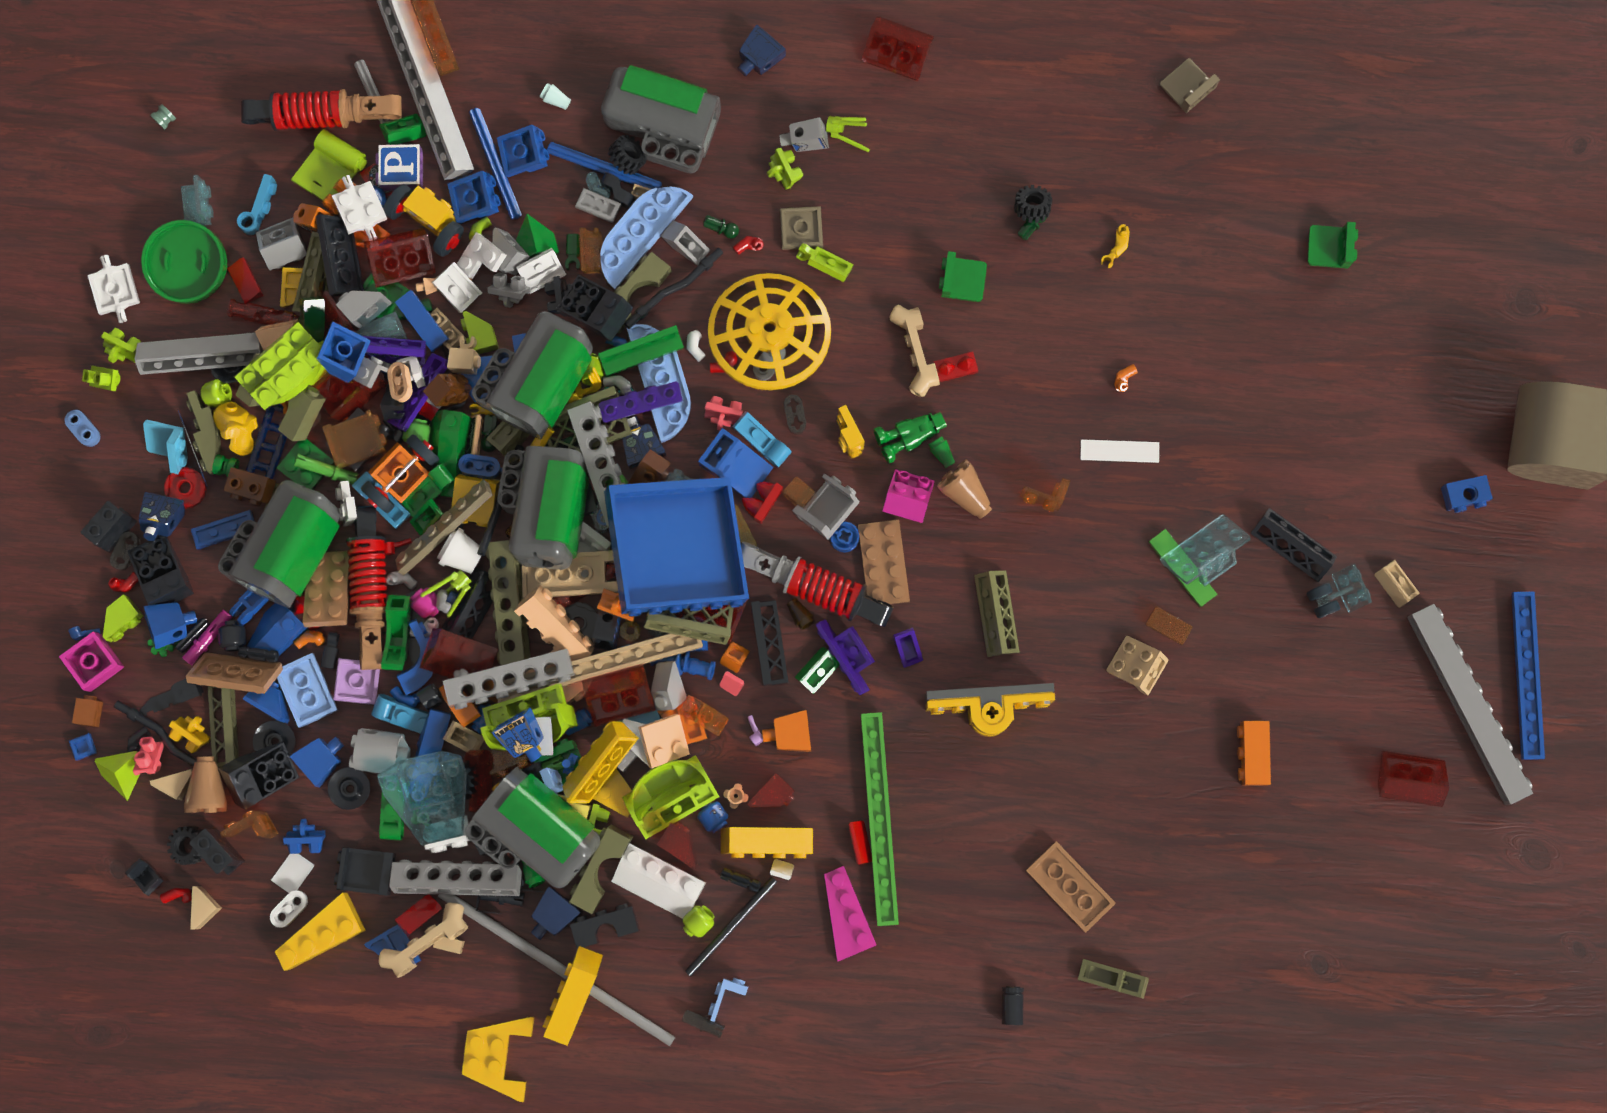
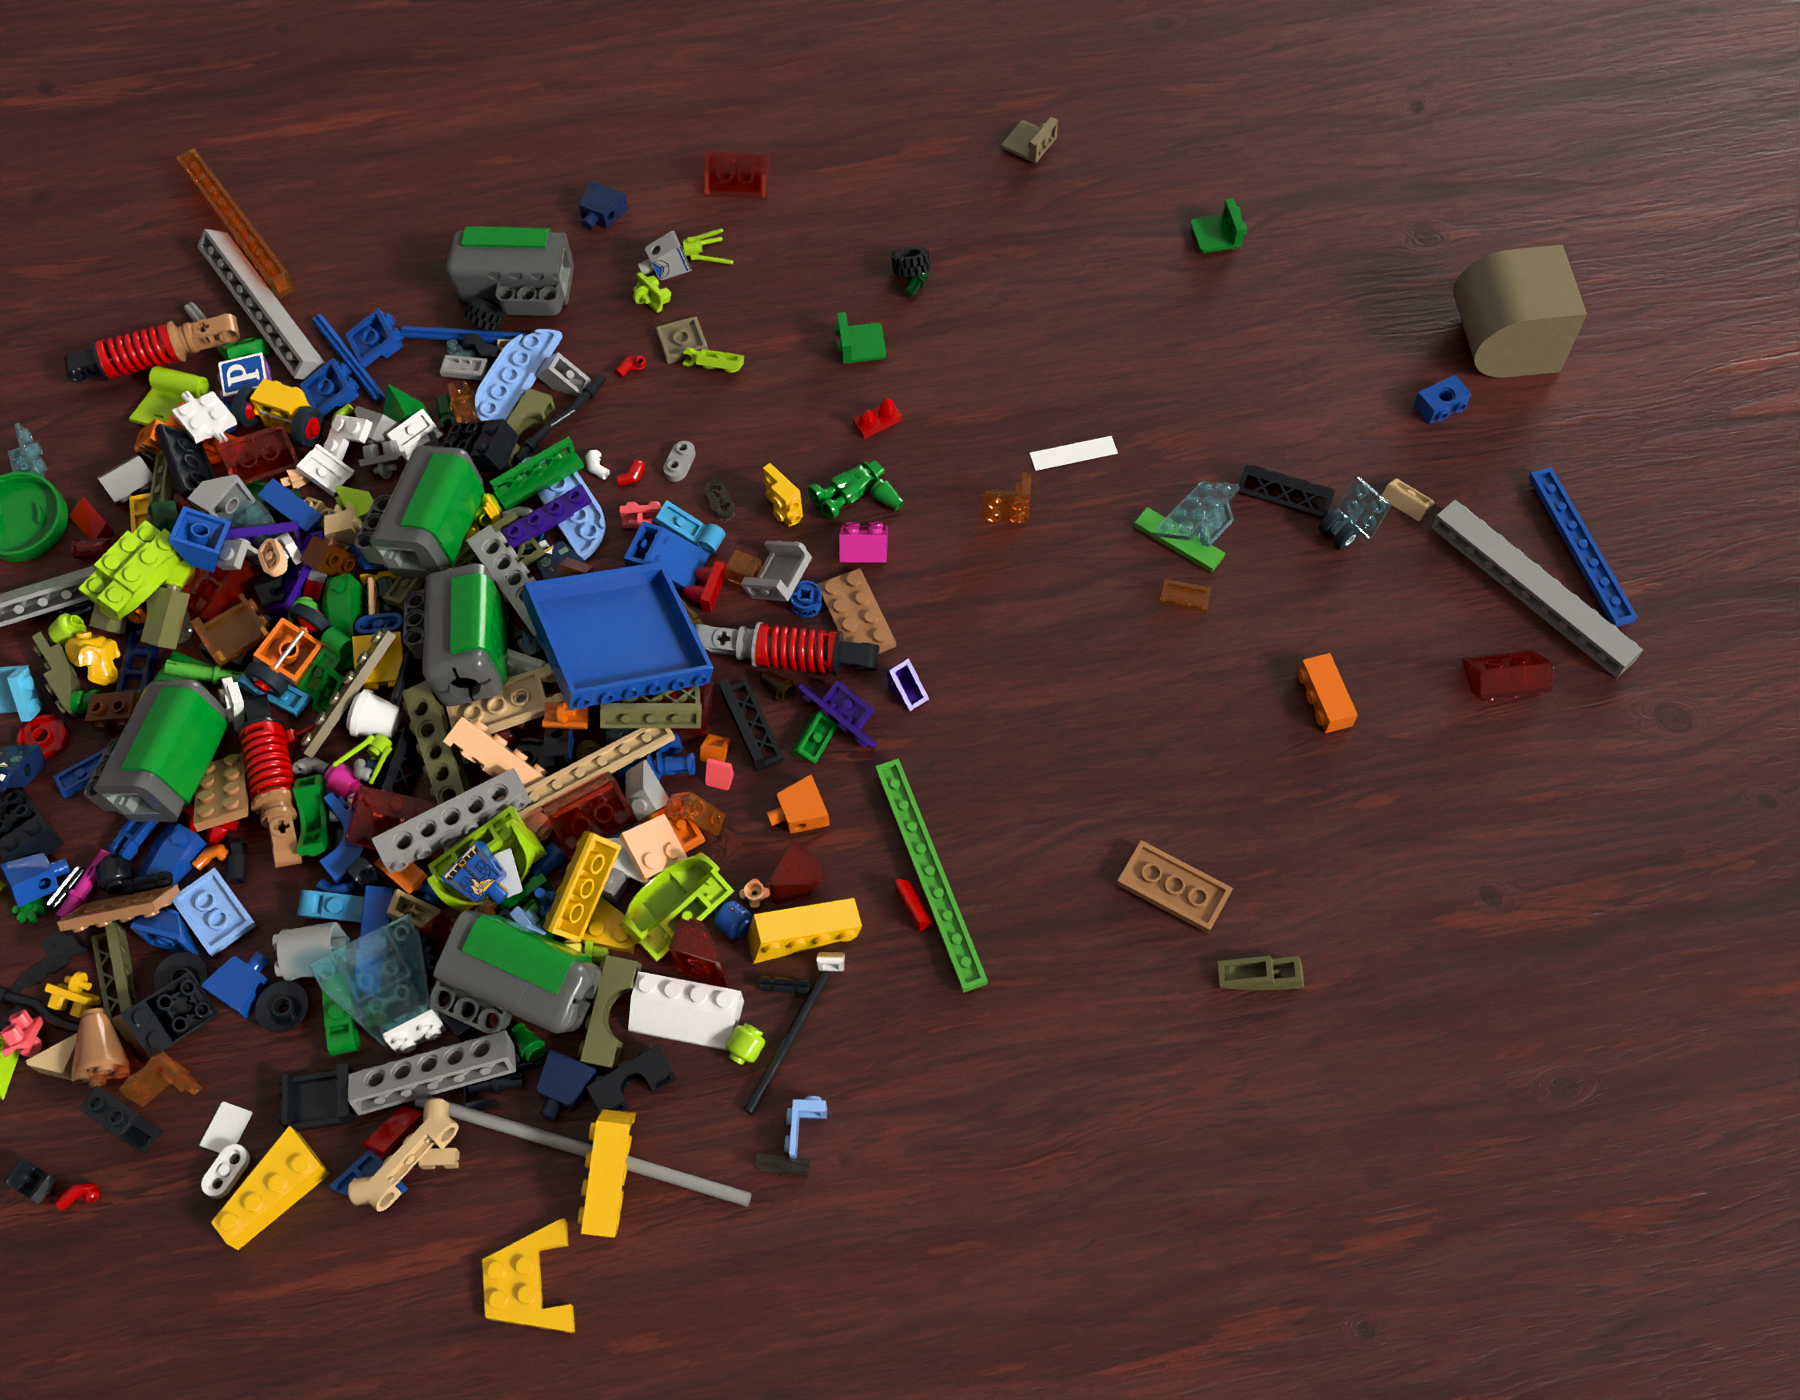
camera: 15 degrees left, 20 degrees down
(177, 845) = (71, 1133): black tyre -> none
(202, 907) = (111, 1202): tan slope -> none
(261, 206) = (91, 464): dark azure plate -> none
(303, 835) = (222, 1086): blue hips -> none
(355, 684) = (272, 887): lavender plate -> none
(554, 96) = (399, 288): light aqua cone -> none
(730, 229) = (608, 358): dark green axle -> none
(757, 737) = (762, 824): lavender hand -> none
(769, 341) = (678, 433): yellow dish -> none
(847, 918) = (928, 998): dark pink wing -> none
(927, 374) = (848, 428): tan plate -> none
(966, 490) = (923, 520): medium nougat cone -> none
(993, 613) = (992, 631): olive fence -> none
(997, 699) = (1016, 715): yellow piece -> none
(1012, 1005) = (1153, 1037): black piece -> none
(1121, 245) = (1010, 277): yellow arm -> none
(1122, 377) = (1052, 386): orange arm -> none
(1138, 664) = (1167, 637): tan bracket -> none

